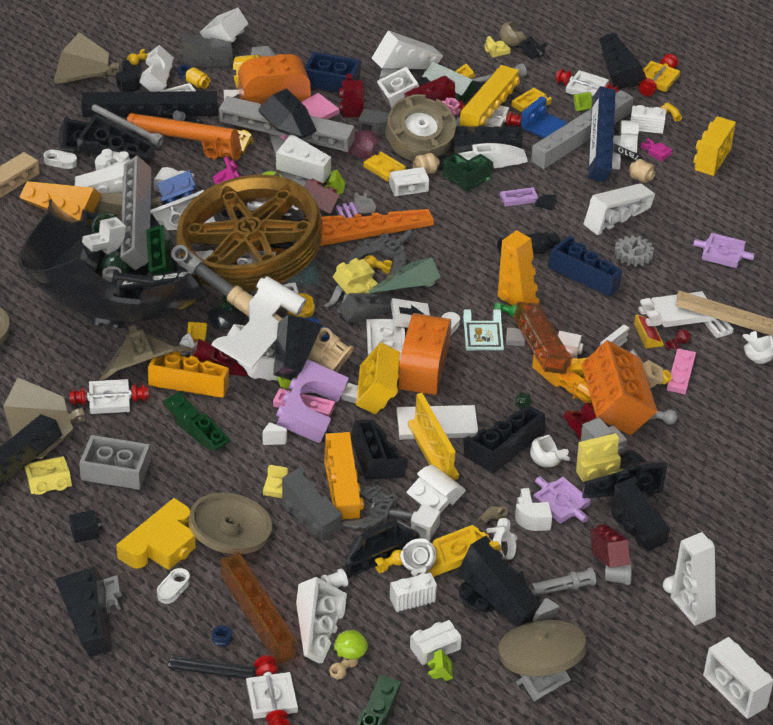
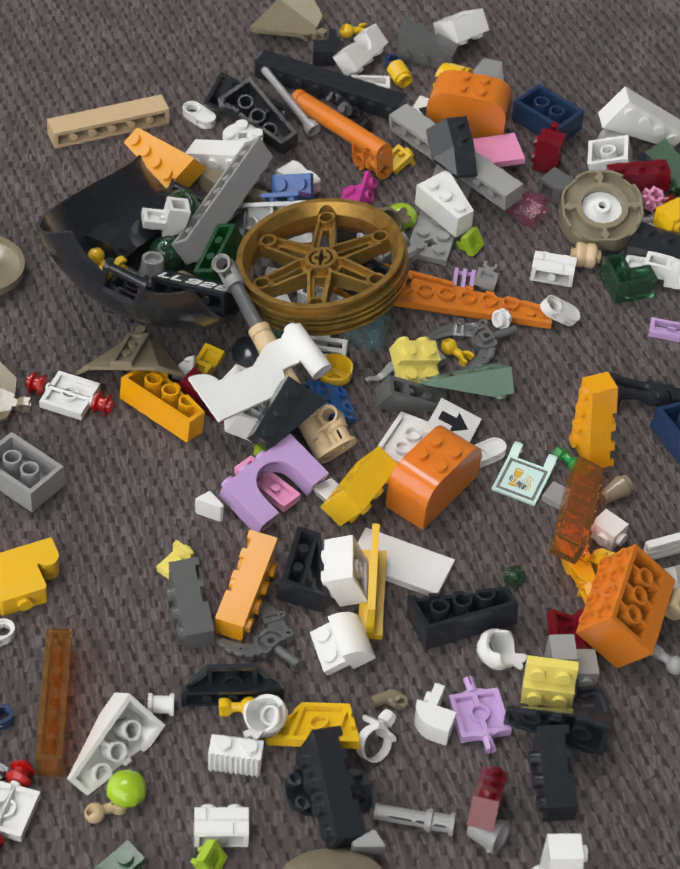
camera: 25 degrees right, 5 degrees up
(194, 423) = (136, 459): dark green slope -> none
(230, 523) = (91, 590): dark tan dish -> none
(323, 196) = (439, 250): bracket -> none
(383, 165) = (539, 239): yellow plate -> none
(393, 228) = (501, 318): none -> white plate
(409, 437) = (345, 570): none -> white brick
(425, 521) = (305, 677): white brick -> none
(434, 208) = (562, 312): none -> white piece
(556, 314) = (618, 488): none -> dark tan cone

